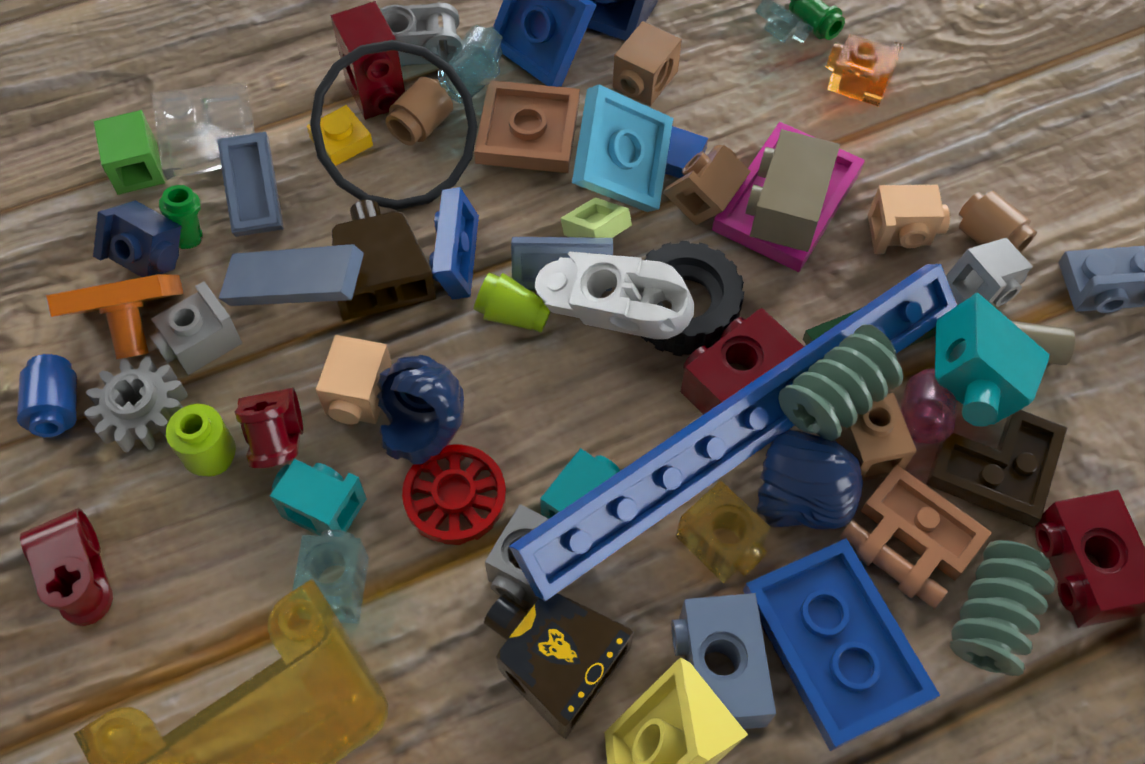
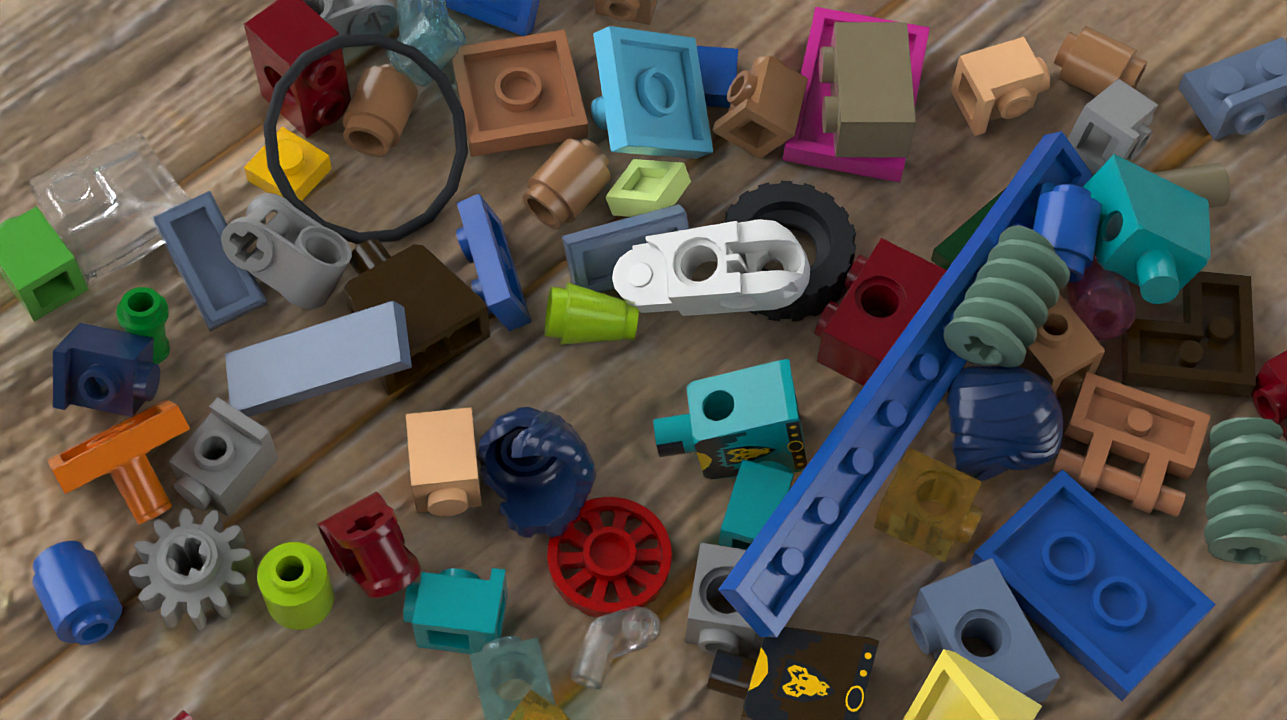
camera: 20 degrees left, 0 degrees up
(307, 191) = (291, 251): none -> light grey piece
(427, 558) = (611, 638): none -> clear arm
(537, 200) = (567, 182): none -> medium nougat brick
(592, 413) = (736, 418): none -> teal torso
(919, 341) = (1071, 225): none -> blue brick

